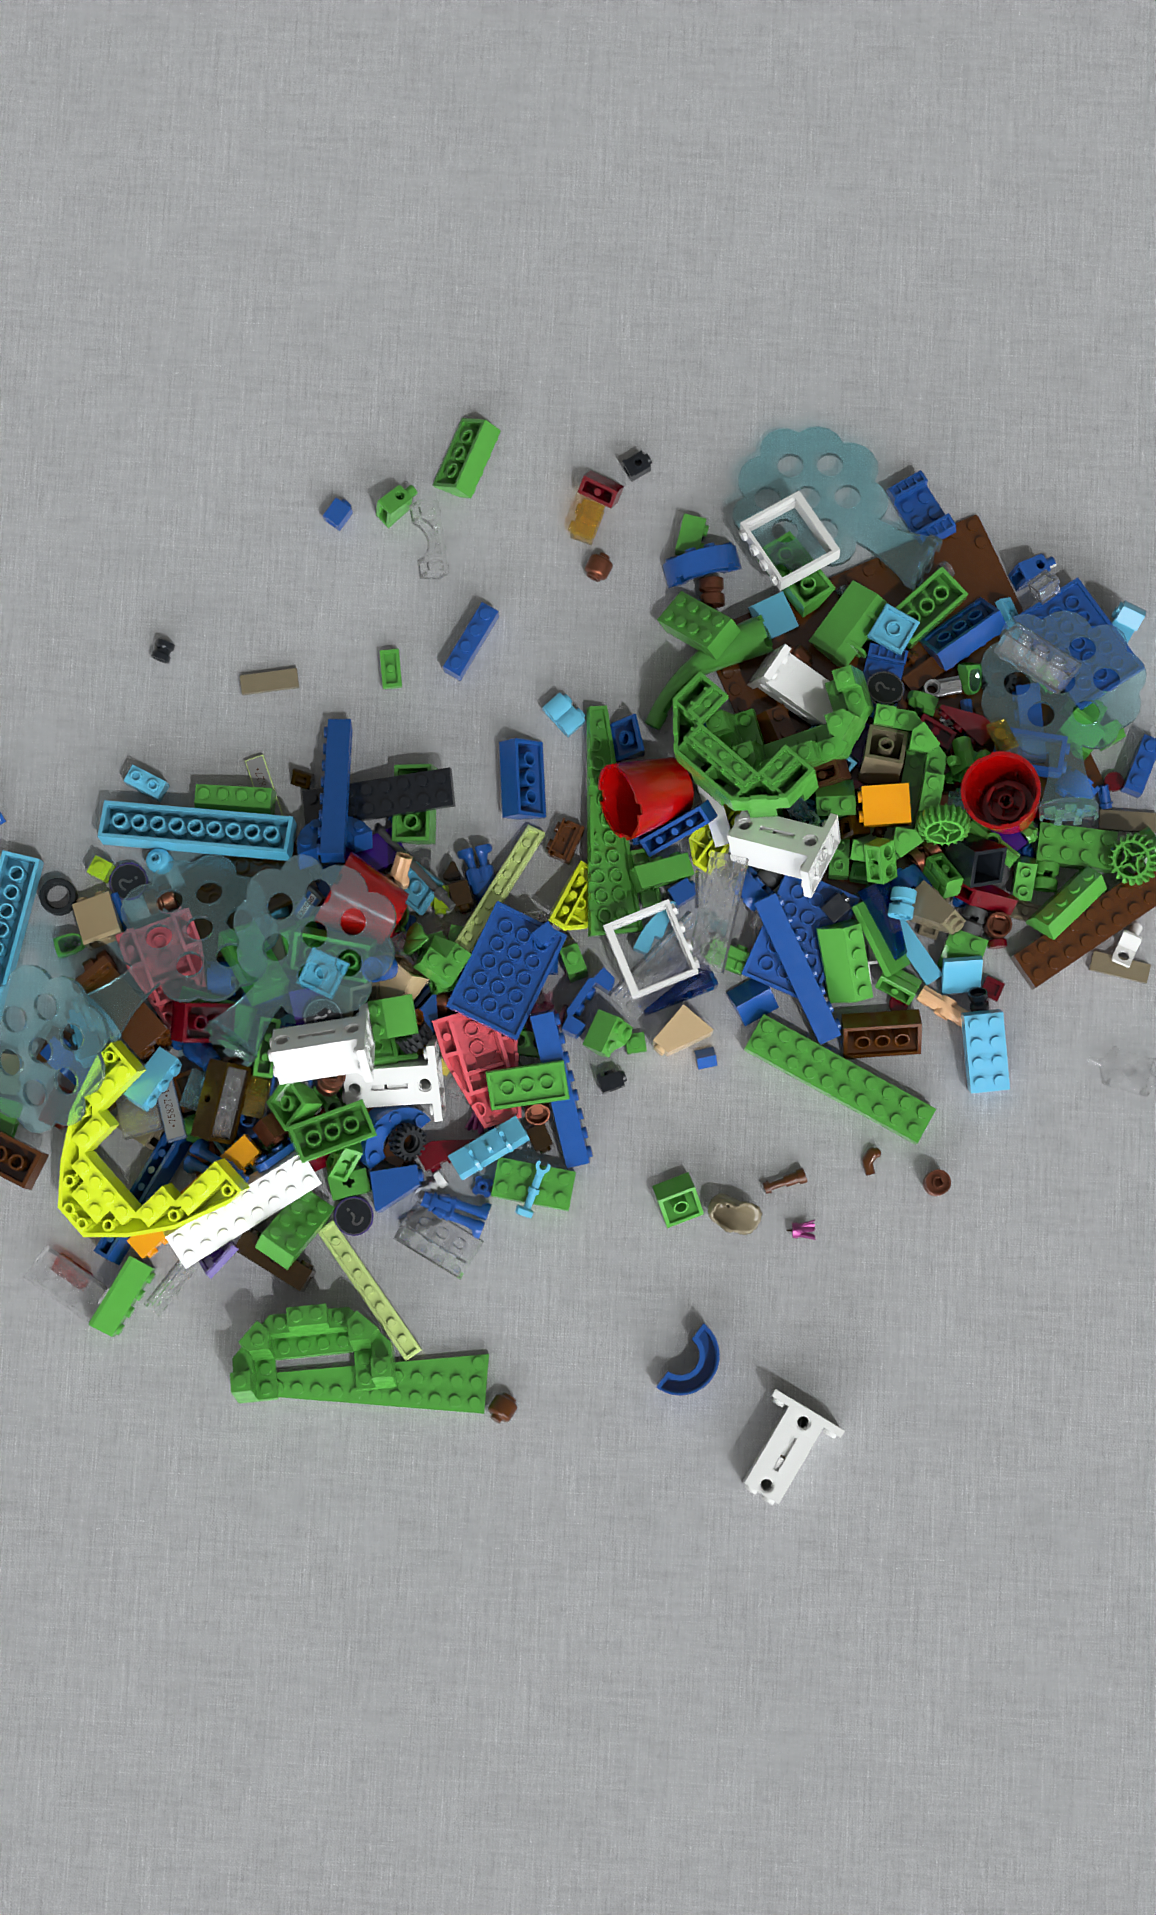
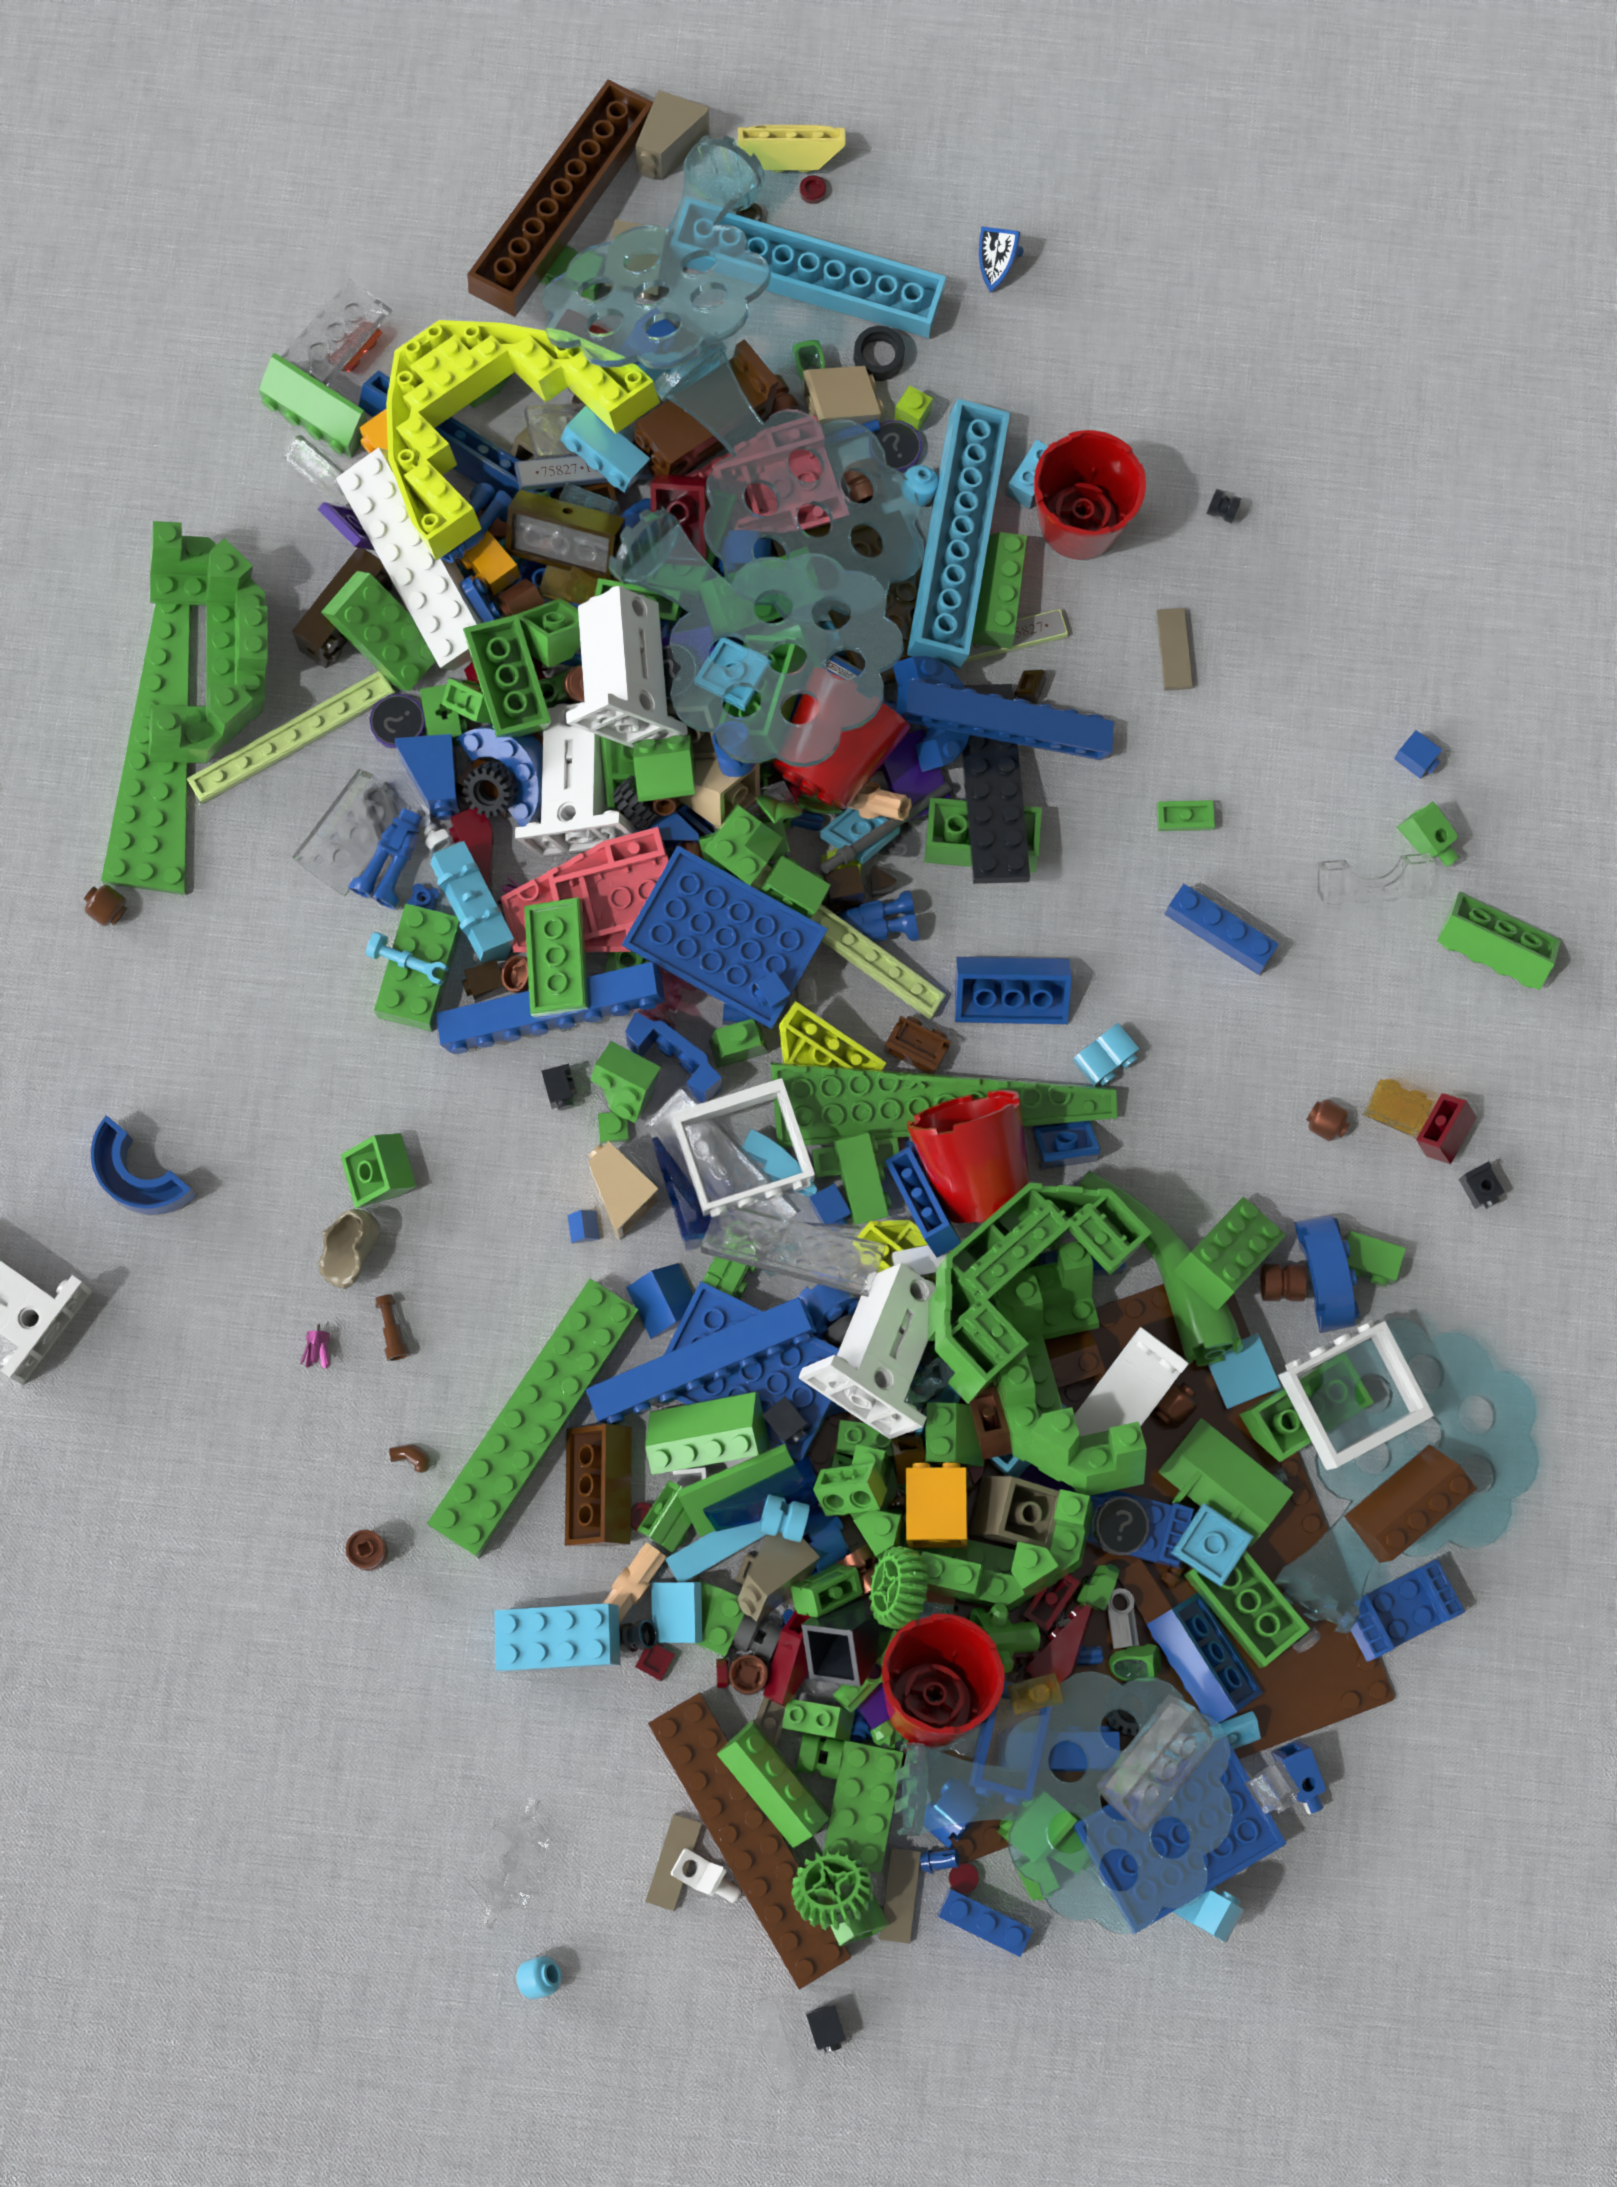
camera: 85 degrees right, 5 degrees down
(164, 726) = (1091, 477): none -> red cone
(468, 925) = (795, 886): none -> bright green brick
(856, 504) = (1409, 1503): none -> reddish brown slope

